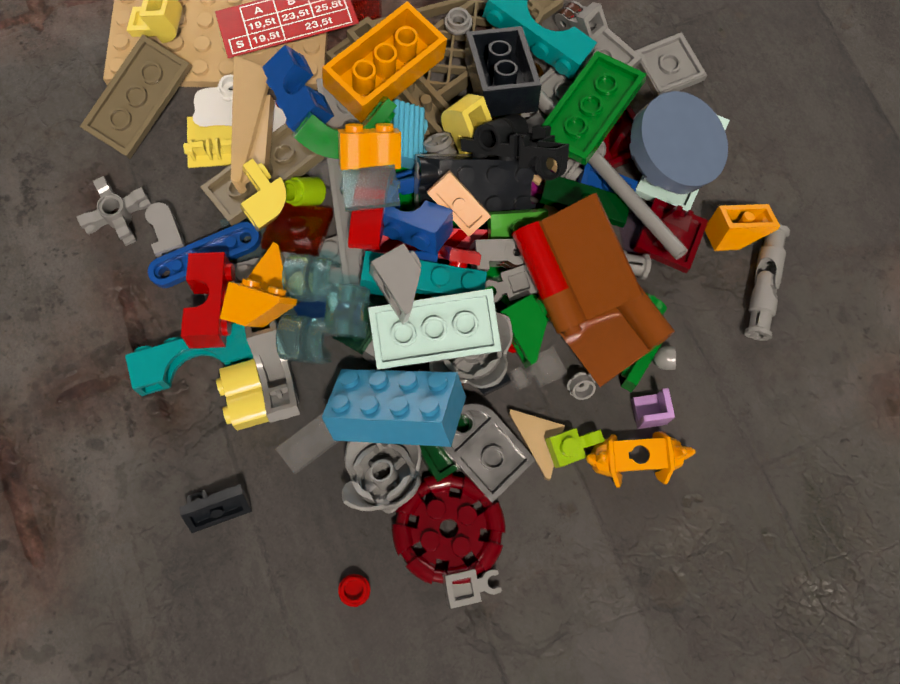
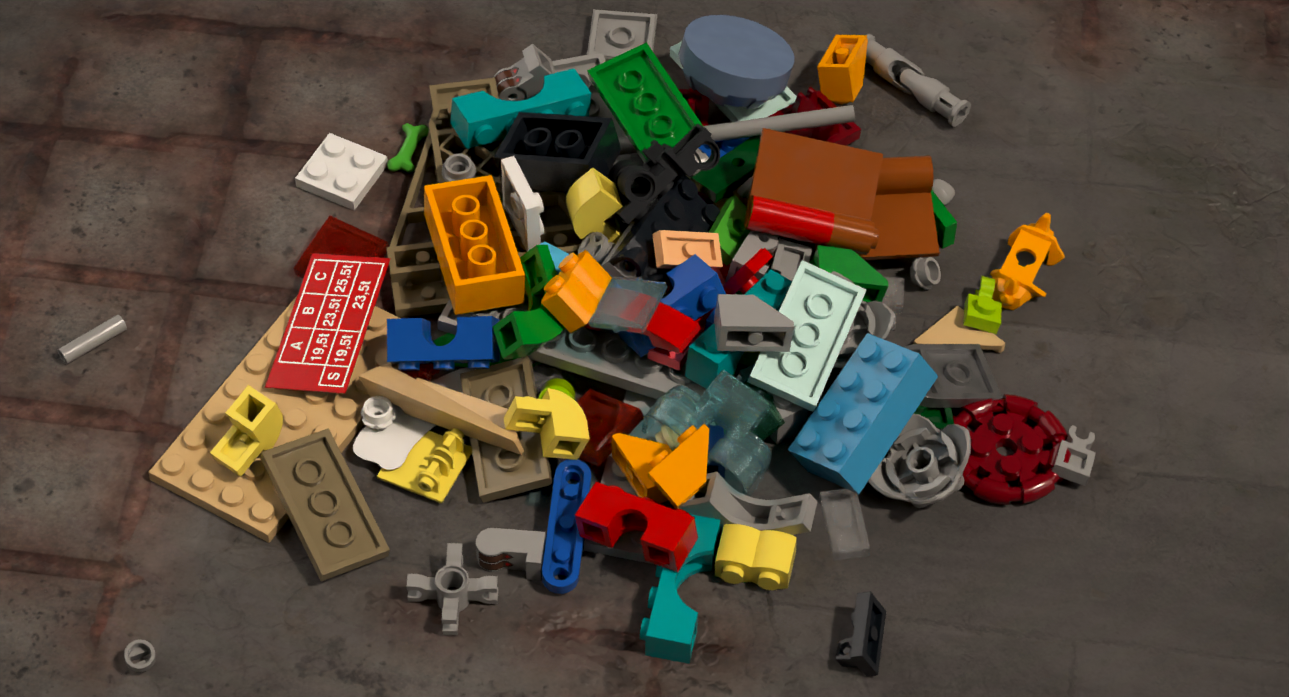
camera: 60 degrees left, 20 degrees down
(354, 590) = (1023, 555): red plate -> none
(439, 72) = (521, 203): none -> white plate
(653, 409) = (985, 227): lavender panel -> none

